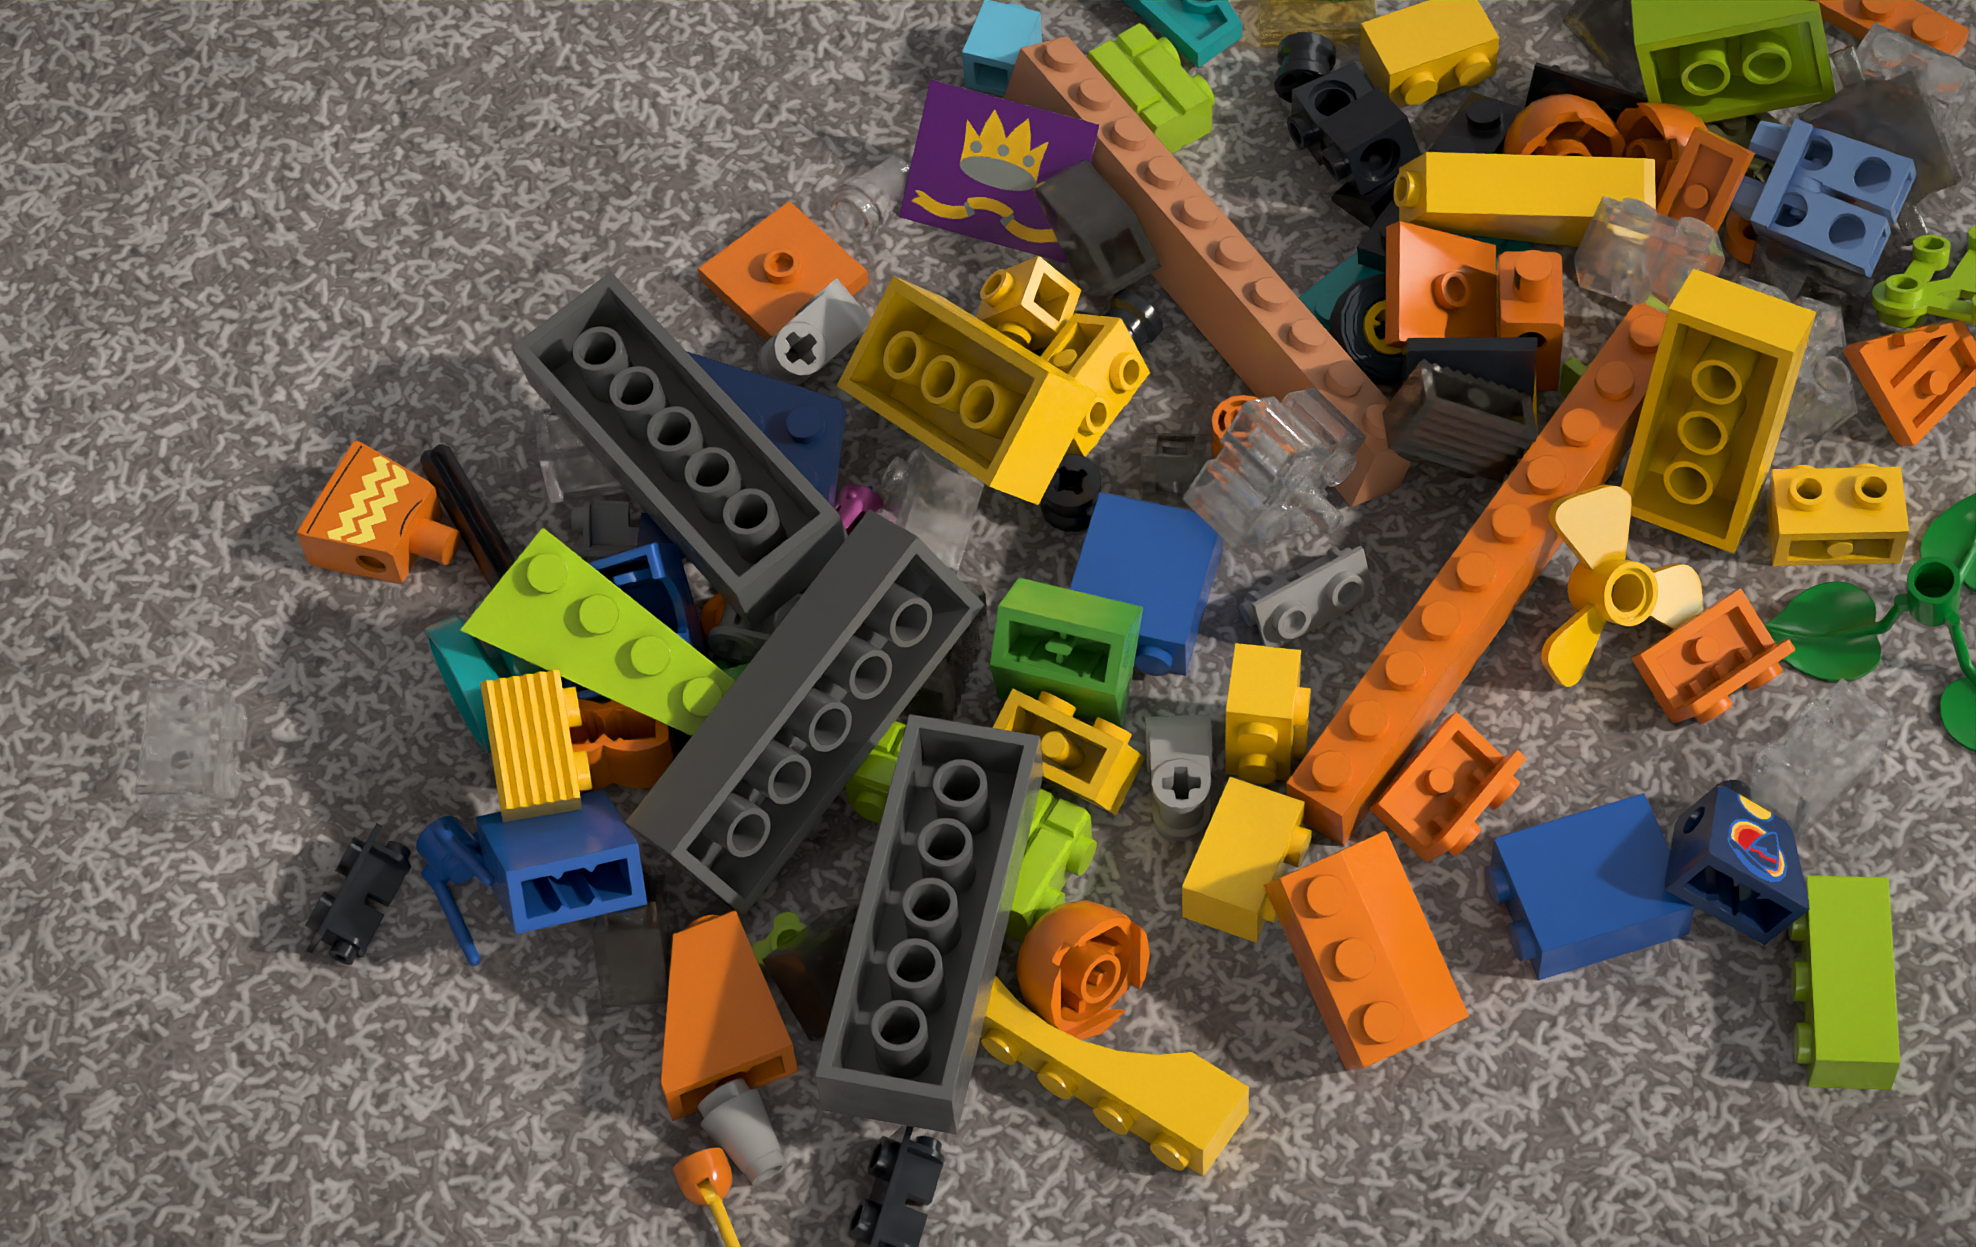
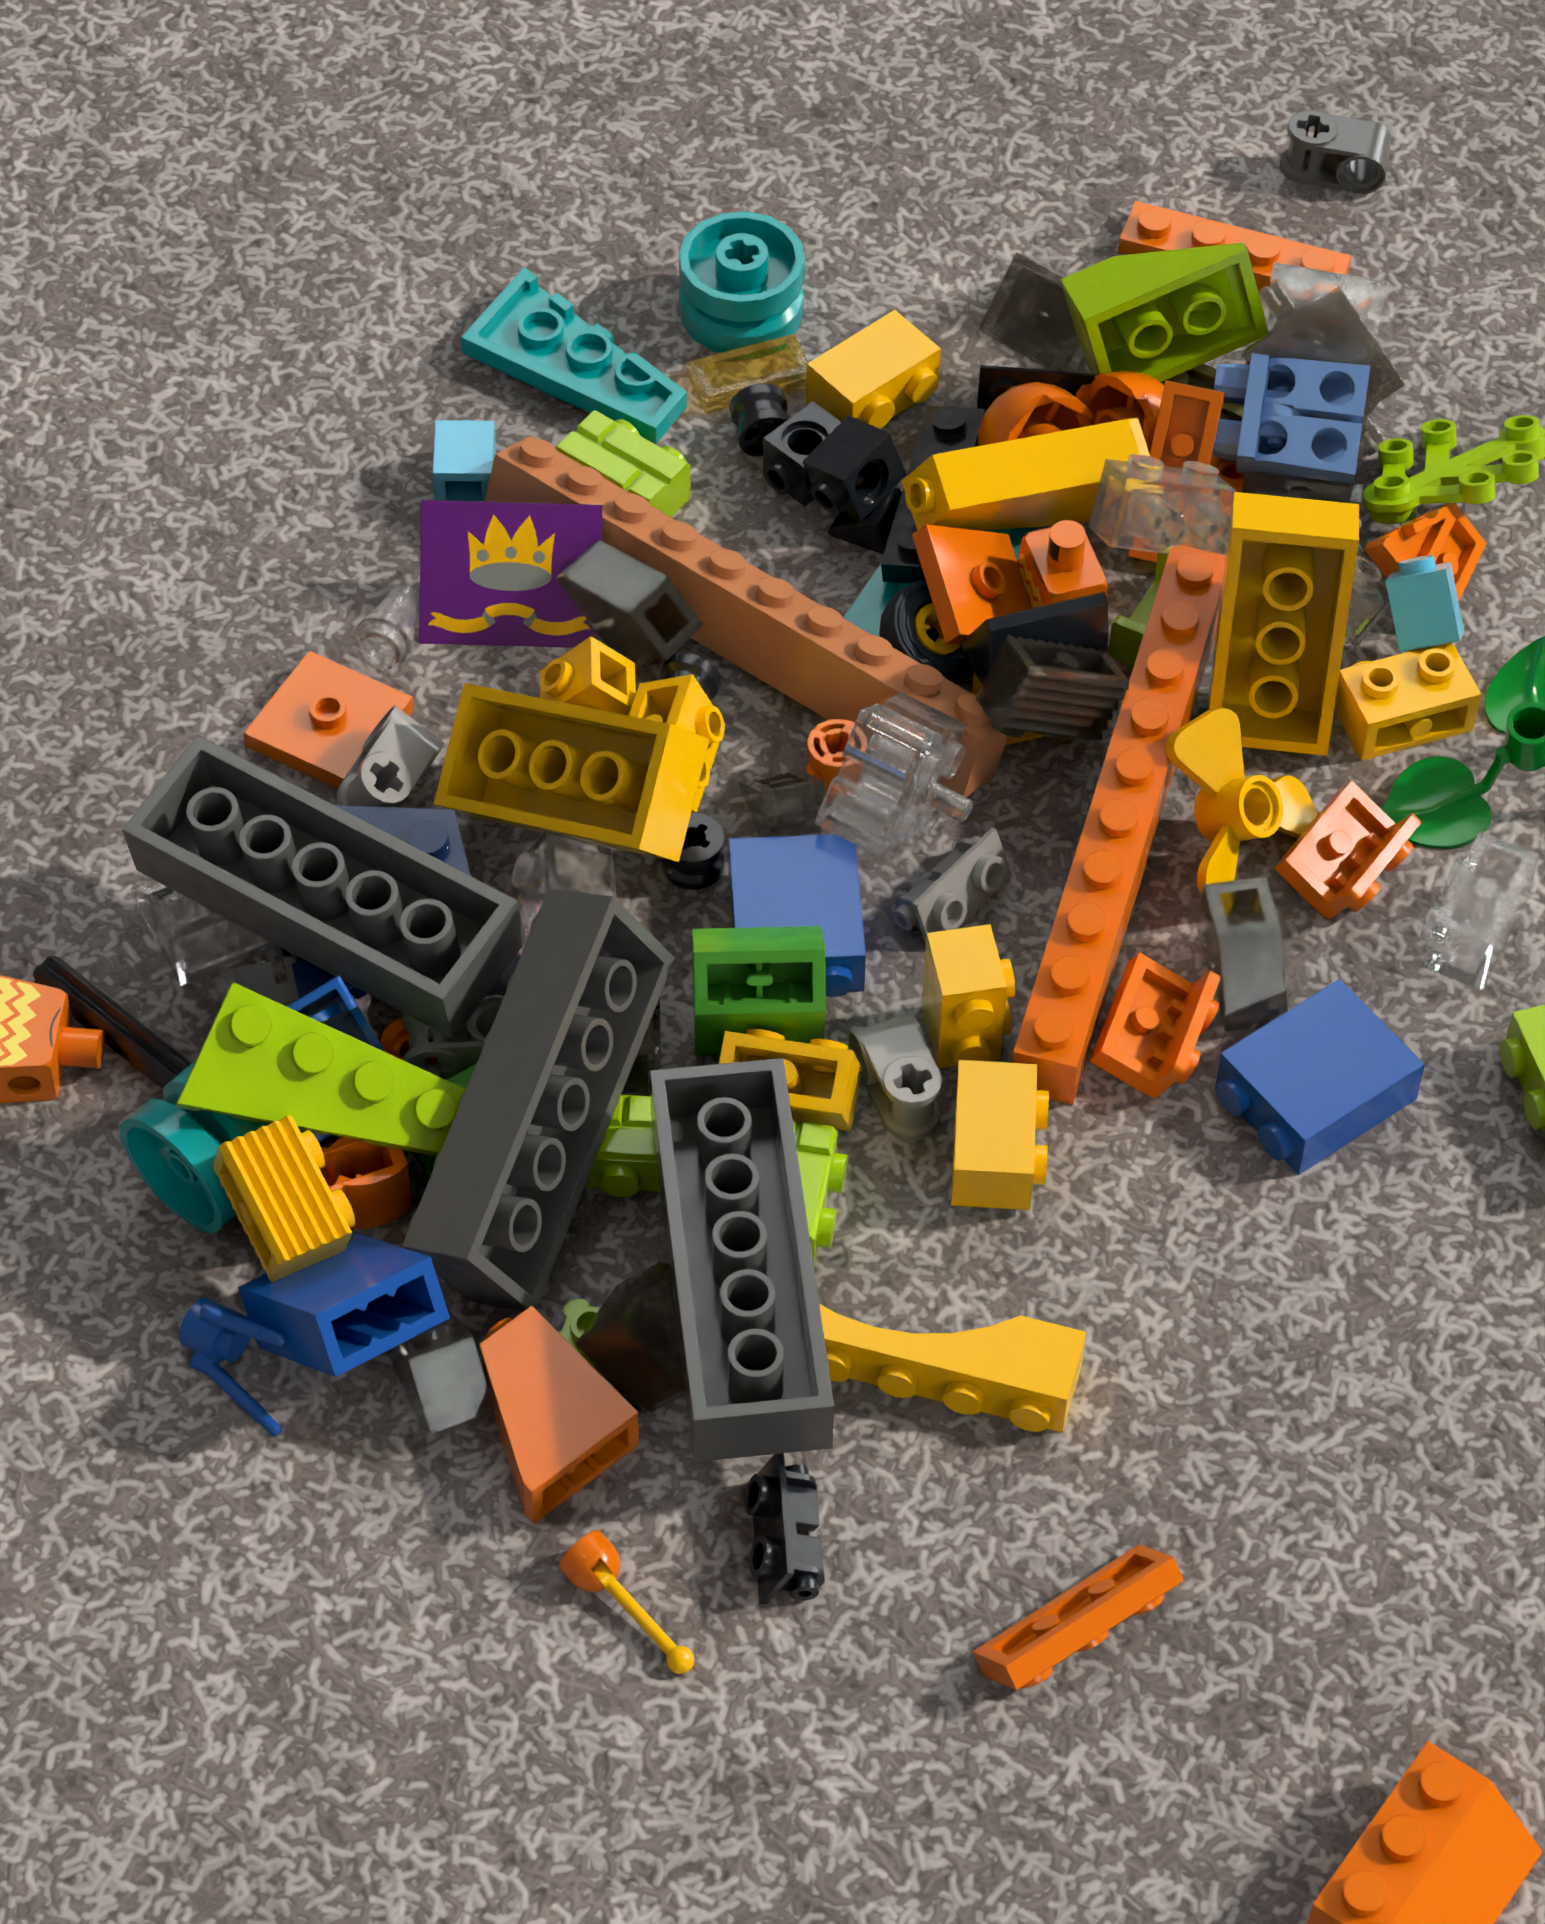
camera: 25 degrees left, 5 degrees down
(344, 918) = (125, 1422): black hinge -> none
(742, 1128) = (607, 1503): light grey cone -> none
(1080, 964) = (879, 1257): orange cylinder -> none
(1366, 952) = (1141, 1186): orange slope -> none
(1562, 740) = (1245, 948): none -> clear smoke slope
(1737, 863) = (1447, 1018): dark blue torso -> none
(1884, 423) = (1424, 604): none -> medium azure brick

